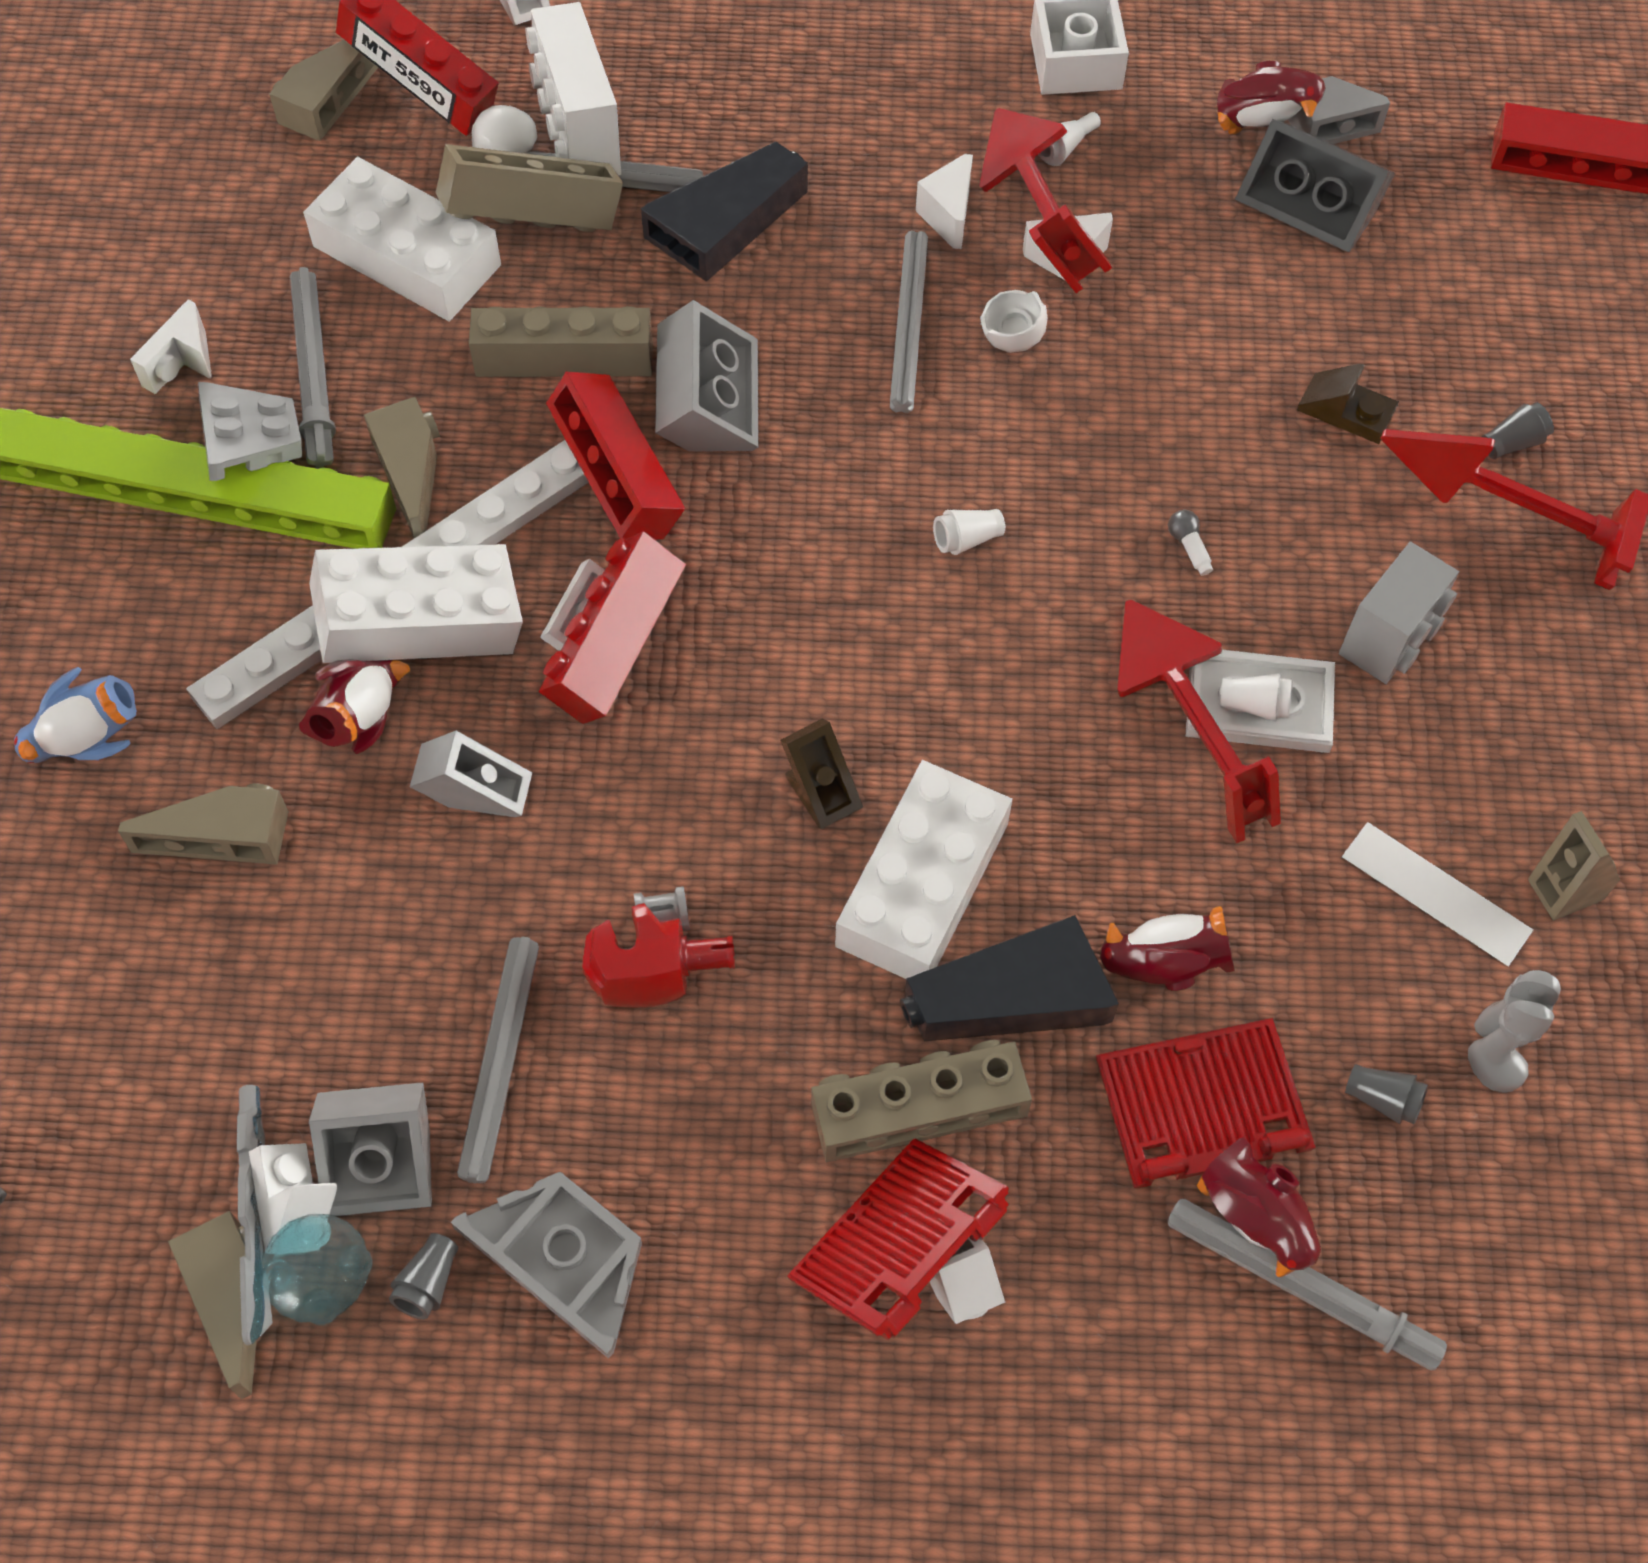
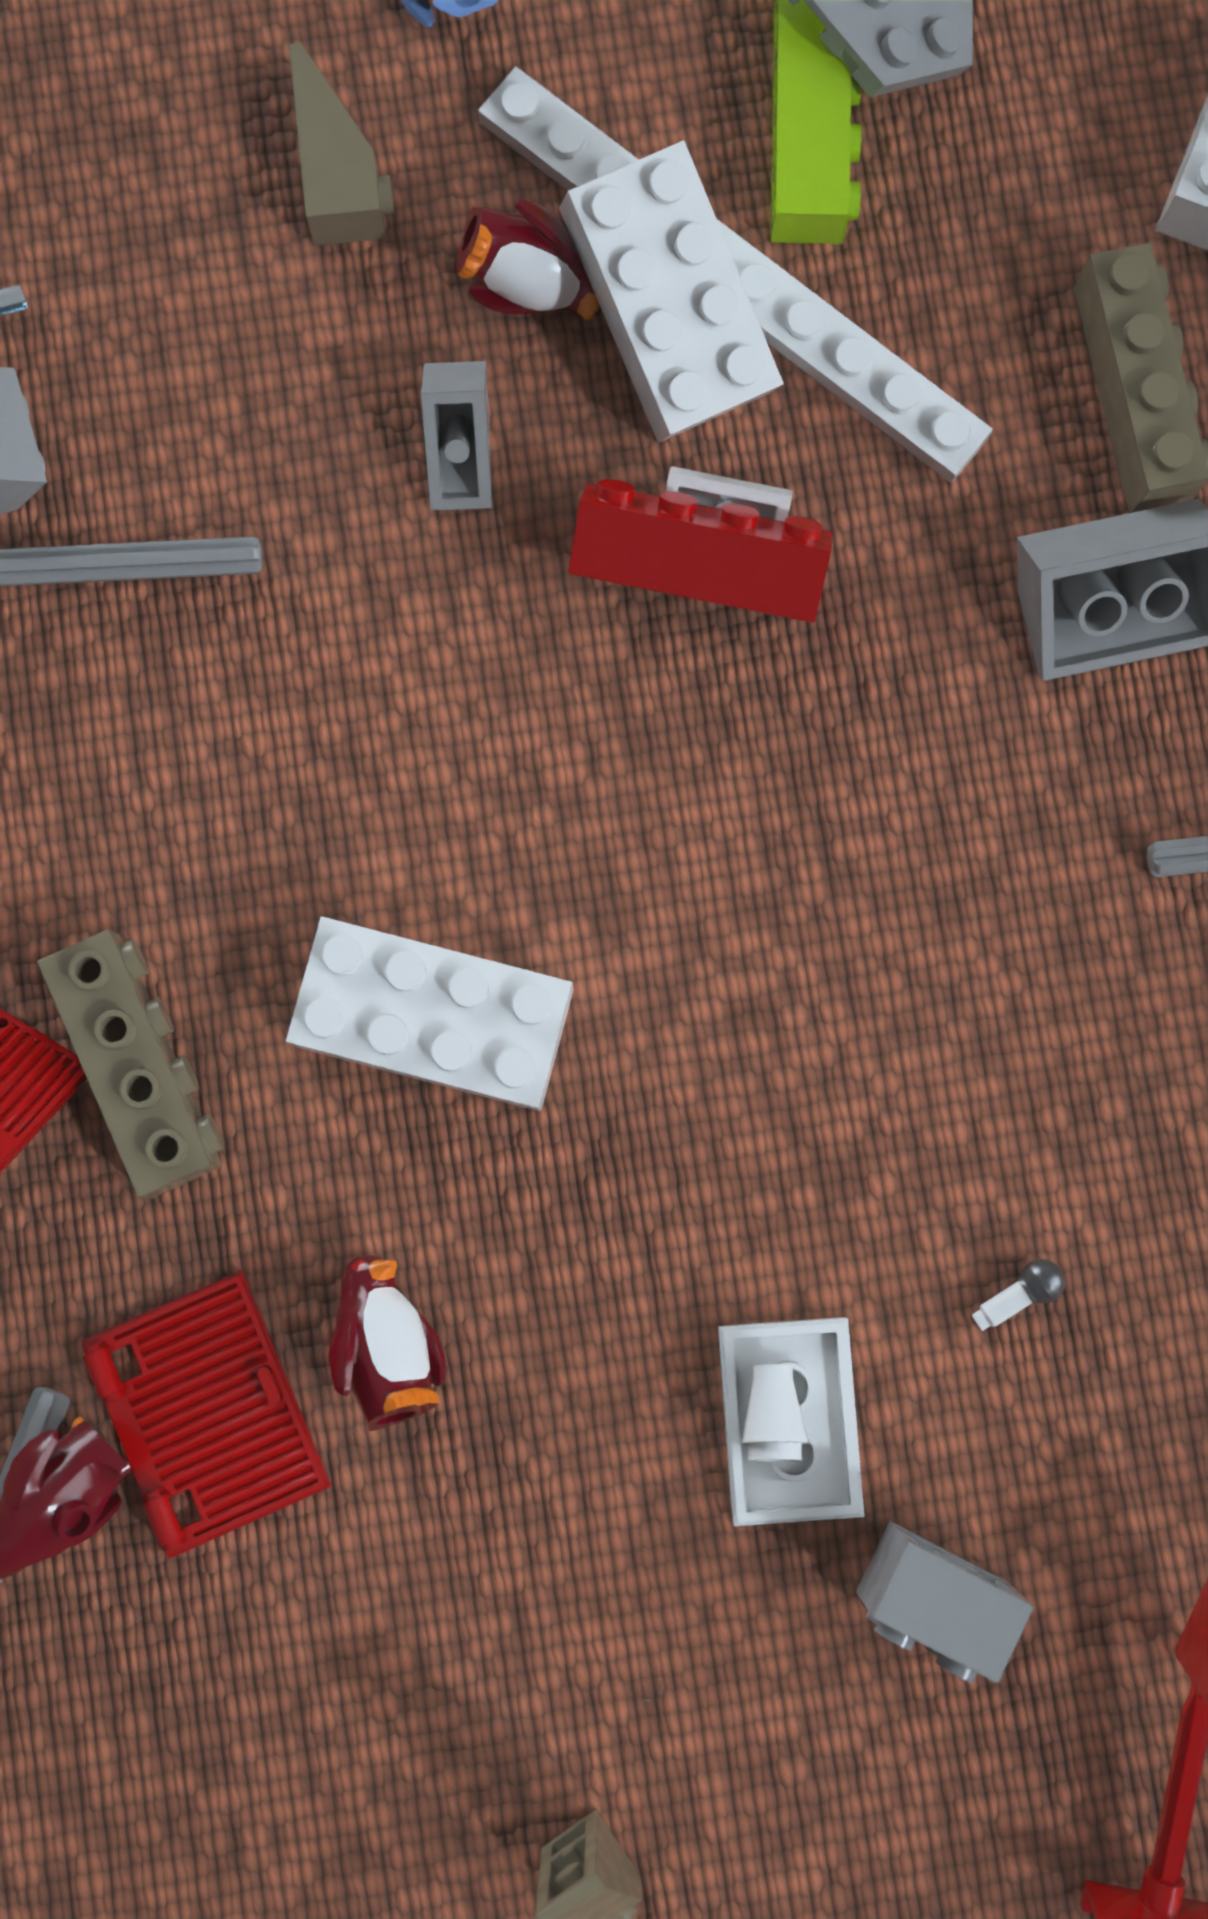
camera: 80 degrees right, 20 degrees up
(316, 424) = (1027, 73): light grey axle -> none
(408, 456) = (904, 234): dark tan slope -> none
(614, 455) = (968, 492): red brick -> none
(656, 965) = (241, 713): red piece -> none
(667, 906) = (323, 705): light grey bush -> none
(820, 773) = (545, 860): dark brown slope -> none
(965, 529) = (966, 984): white cone -> none
(1013, 987) = (301, 1158): black slope -> none
(1160, 650) = (828, 1271): red piece -> none
(1388, 1092) = (246, 1646): dark grey cone -> none
(1438, 893) = (550, 1687): white sticker -> none
(1509, 1024) = (342, 1822): light grey piece -> none

